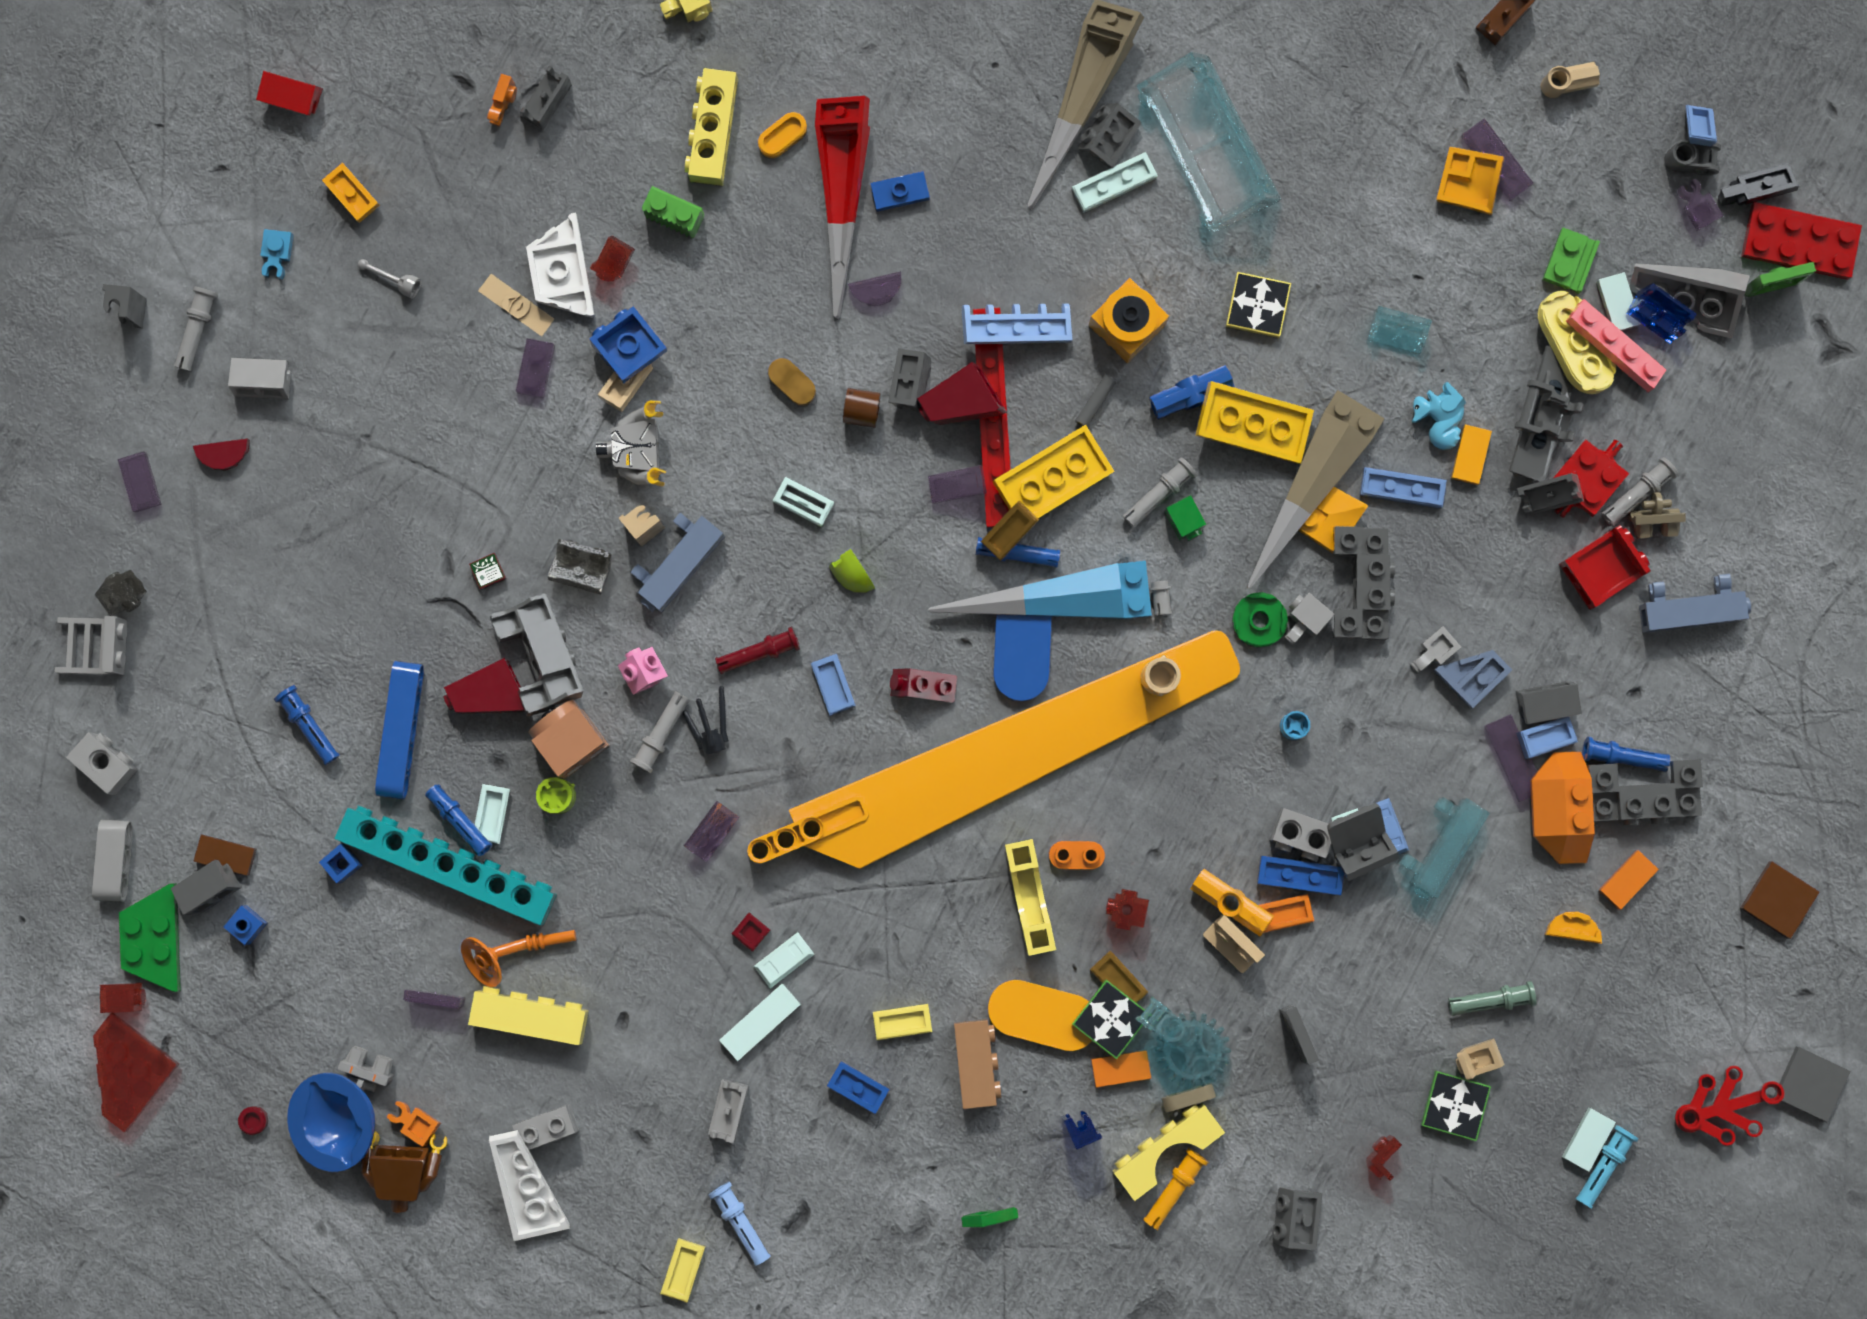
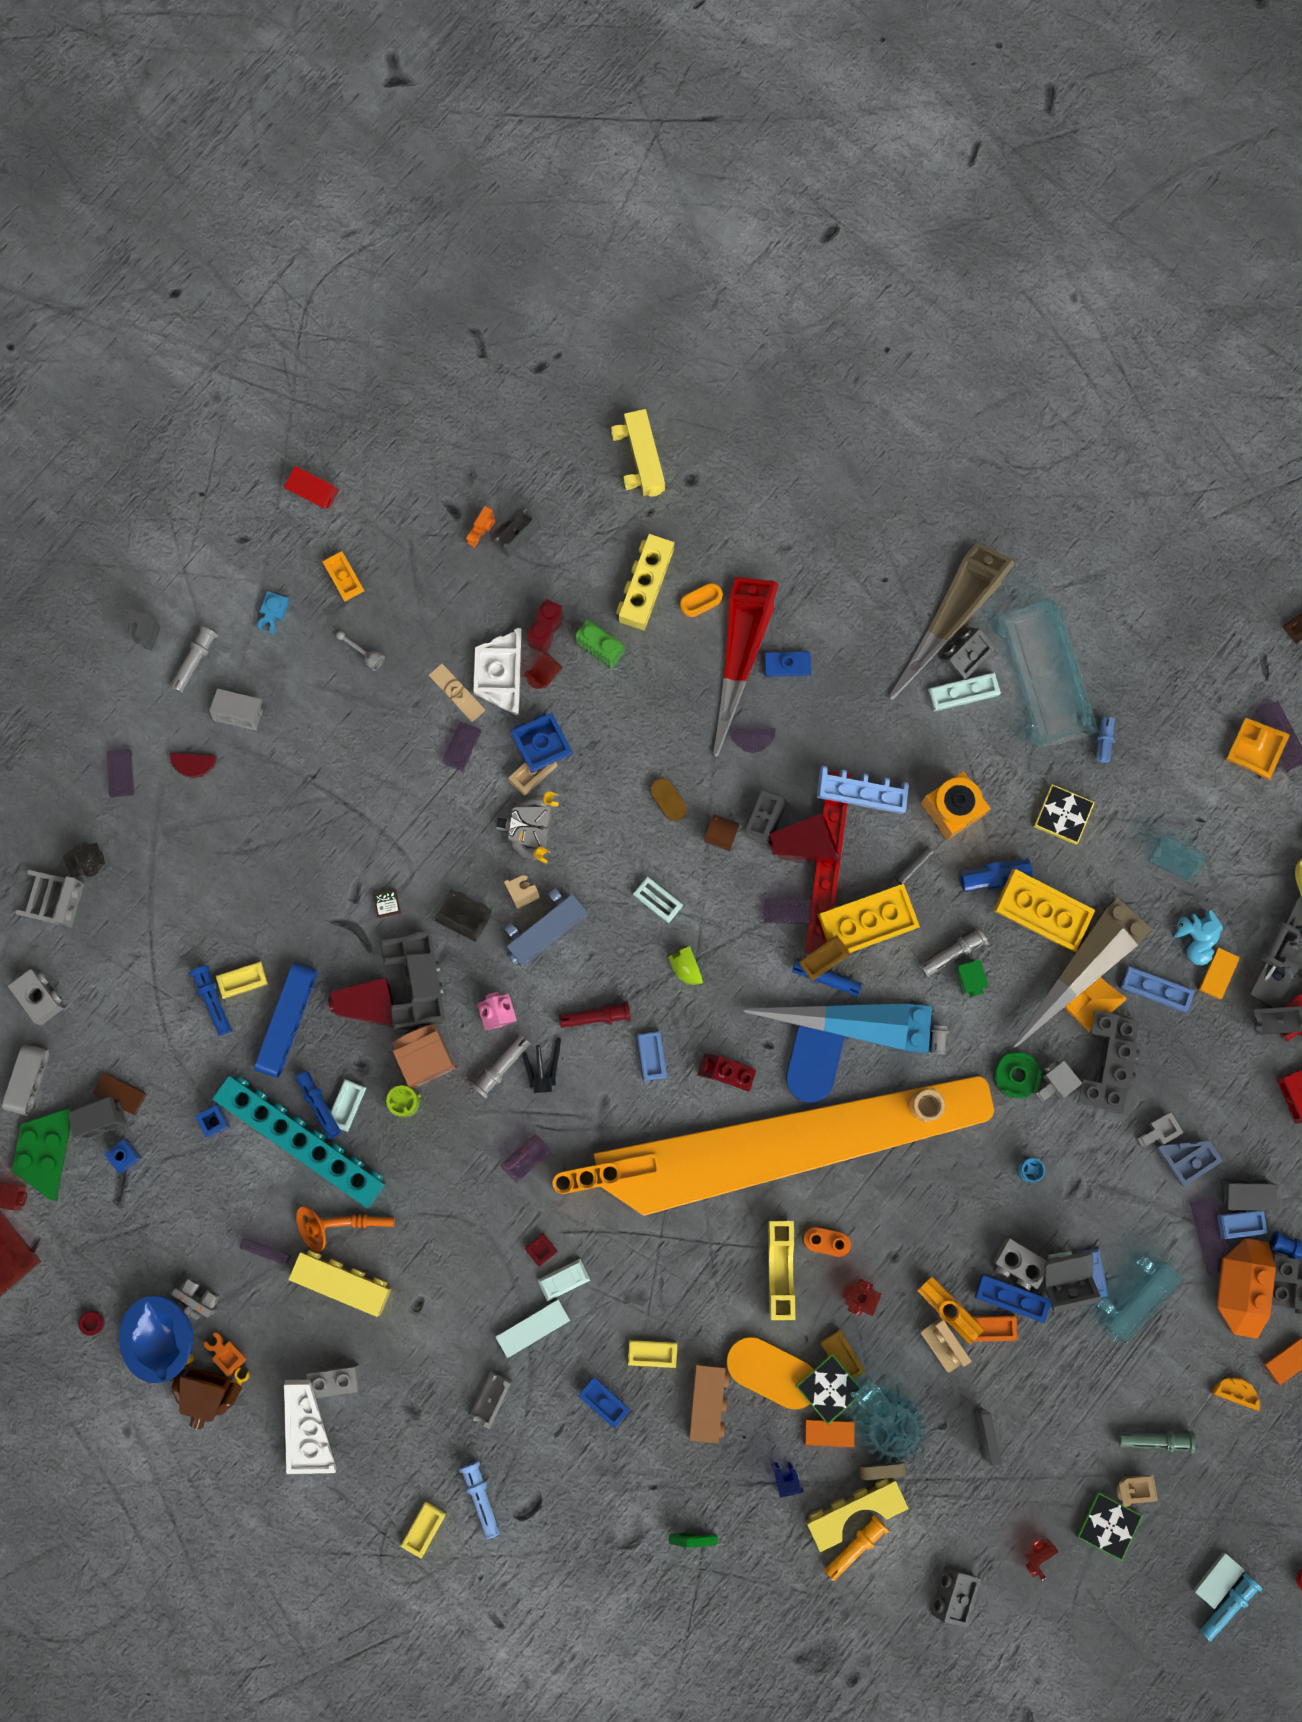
camera: 10 degrees right, 5 degrees down
(337, 694) = (242, 980): none -> light yellow tile
(606, 198) = (548, 621): none -> dark red brick
(1290, 206) = (1105, 740): none -> medium blue axle

